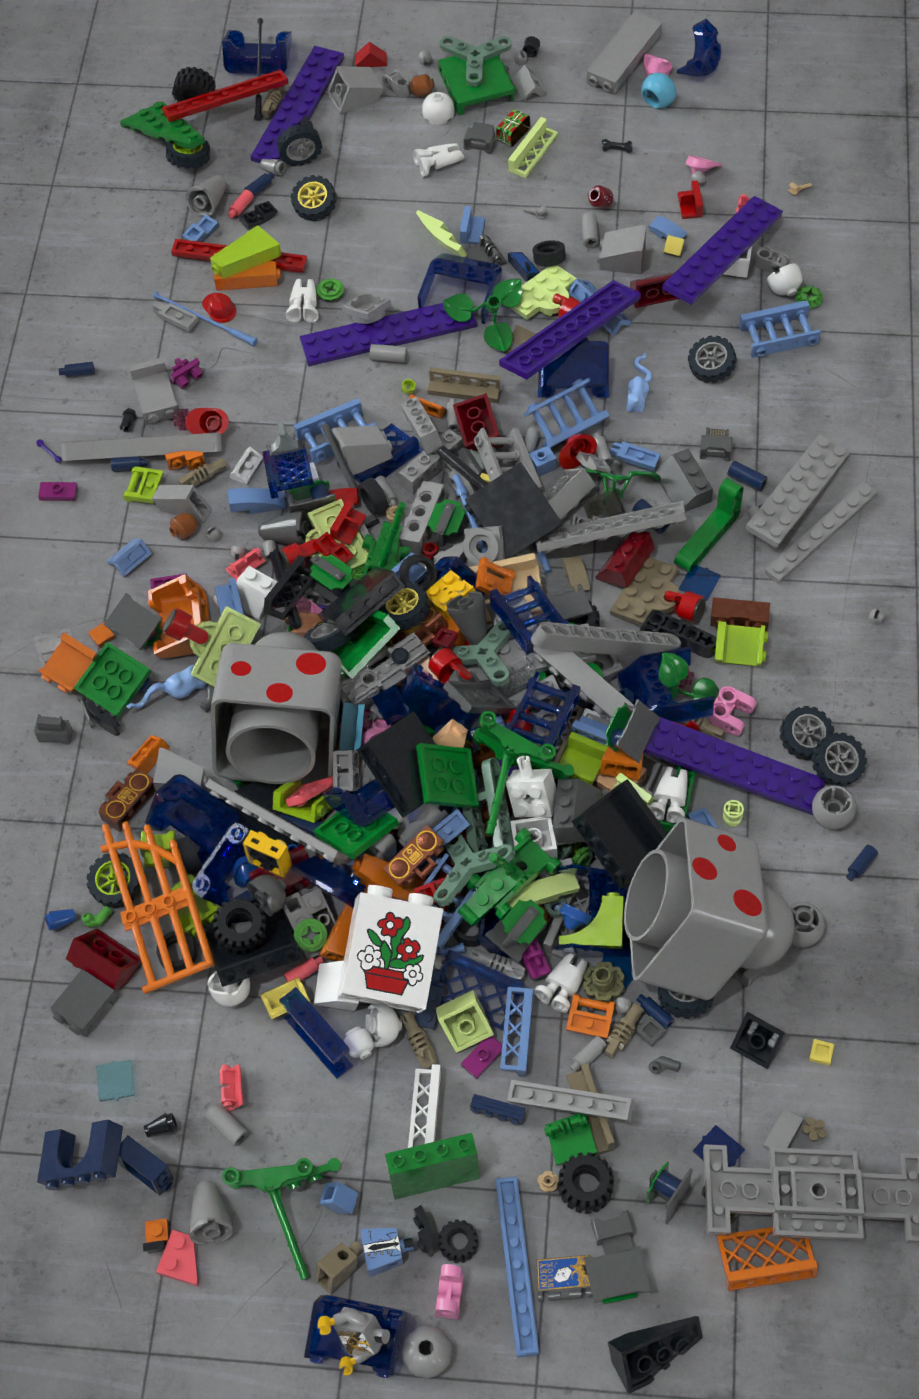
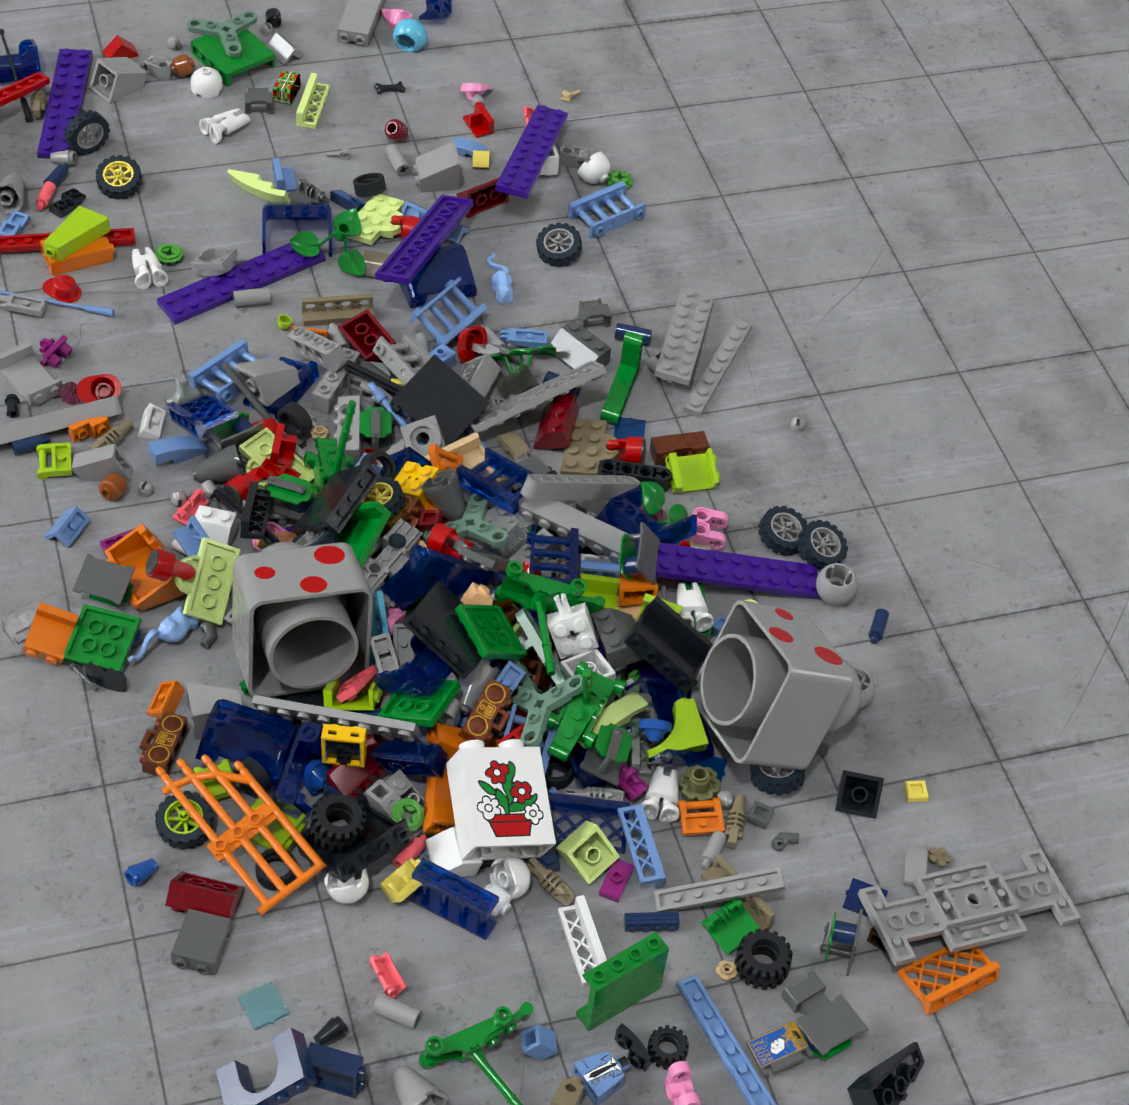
camera: 30 degrees left, 10 degrees down
(53, 729) = (58, 699): dark grey piece -> none
(96, 920) = (174, 865): bright green arm -> none
(101, 635) = (69, 603): orange tile -> none
(269, 893) = (355, 782): dark grey cylinder -> none
(652, 1009) = (756, 795): dark blue cylinder -> none

